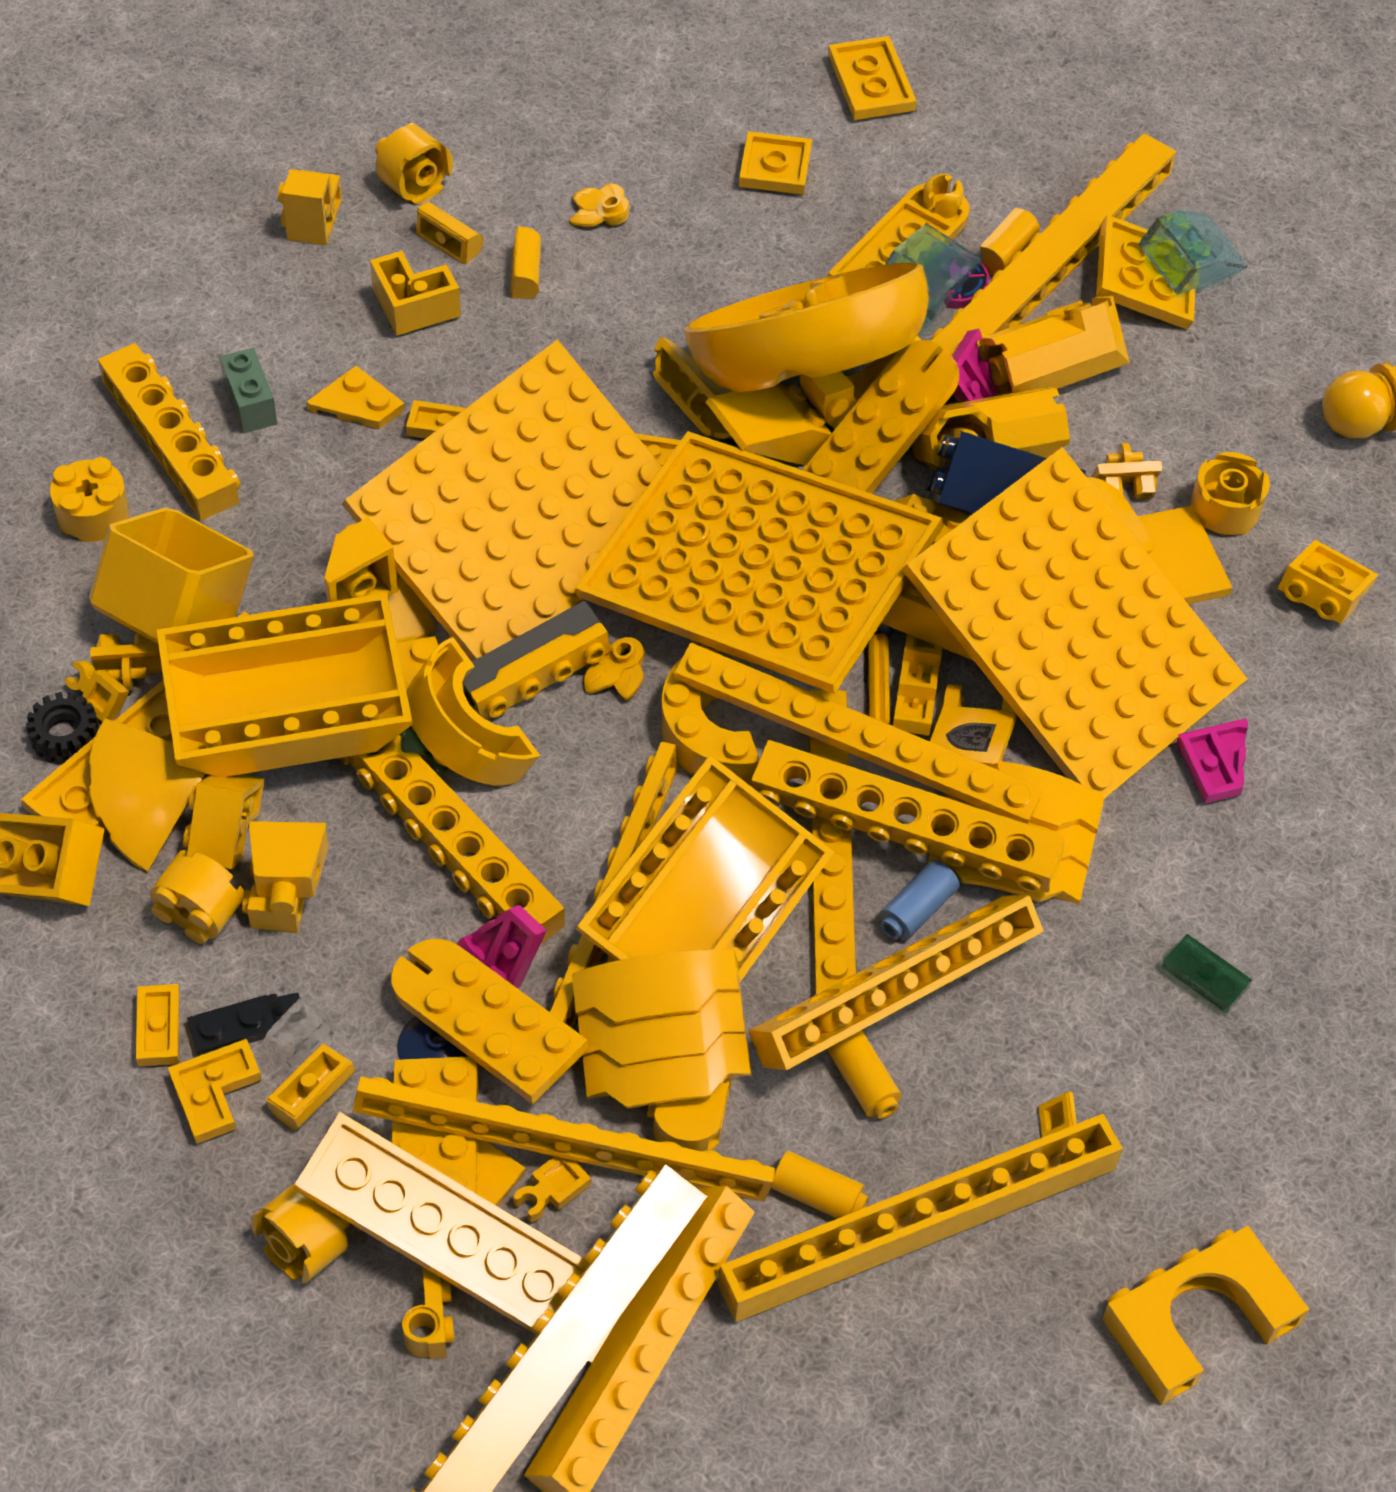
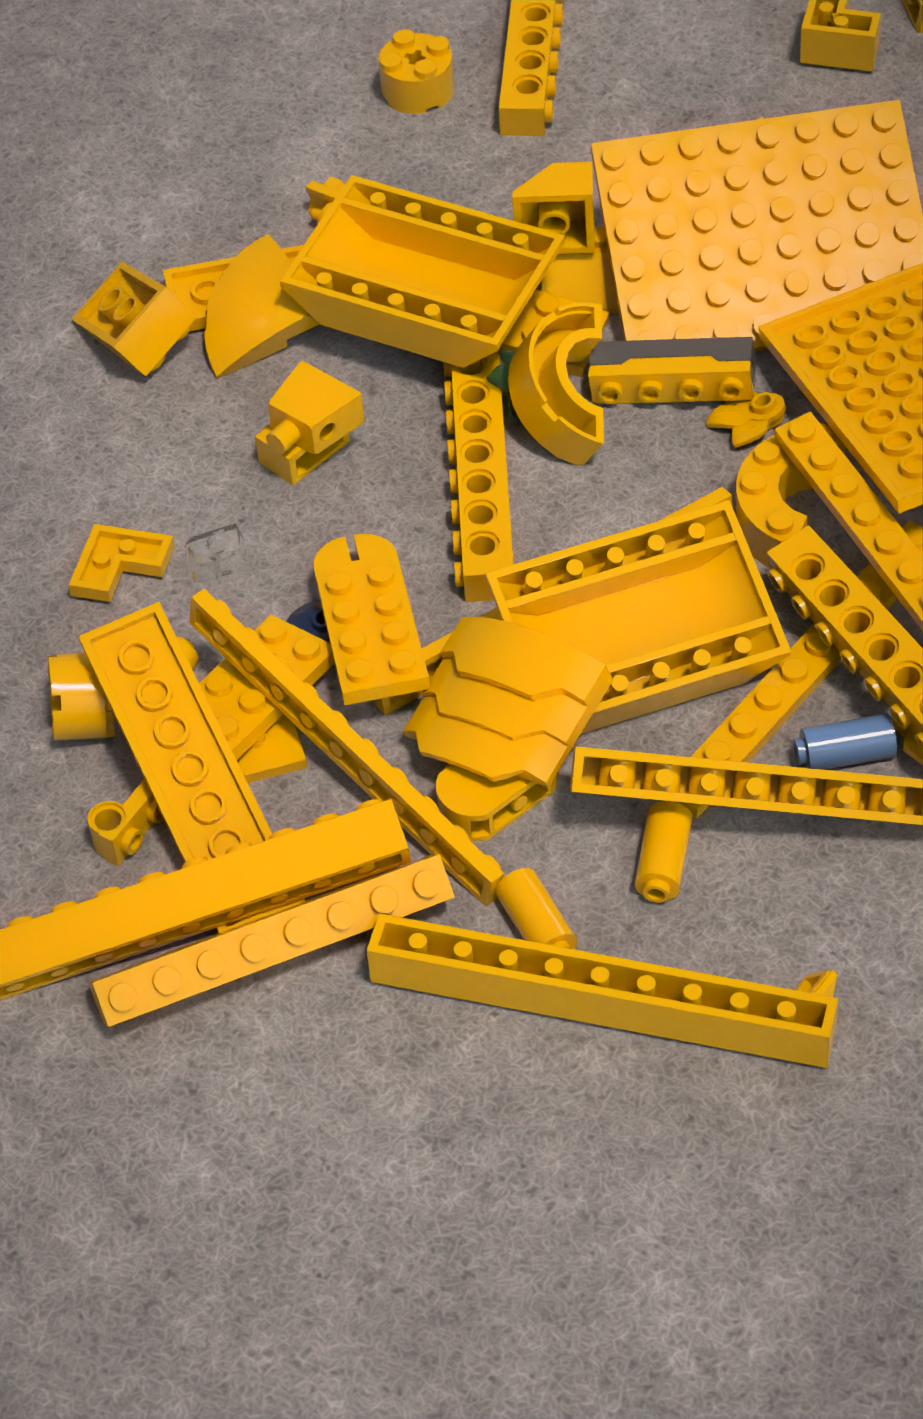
camera: 45 degrees right, 5 degrees down
(54, 712) = (239, 221): black tyre -> none
(100, 689) = (297, 219): yellow plate -> none
(158, 1025) = (118, 490): yellow plate -> none
(168, 573) = (413, 140): yellow plate -> none
(196, 896) = (224, 404): yellow brick -> none
(222, 817) = (298, 340): yellow brick -> none
(238, 1021) = (178, 520): black hinge -> none
(248, 390) = (624, 46): sand green brick -> none
(310, 1086) = (177, 595): yellow brick -> none
(358, 399) = (715, 96): yellow wing -> none
(507, 944) = (440, 578): dark pink wing -> none
(555, 1182) = (320, 786): yellow plate -> none
(1232, 1266) = (739, 1193): yellow arch -> none

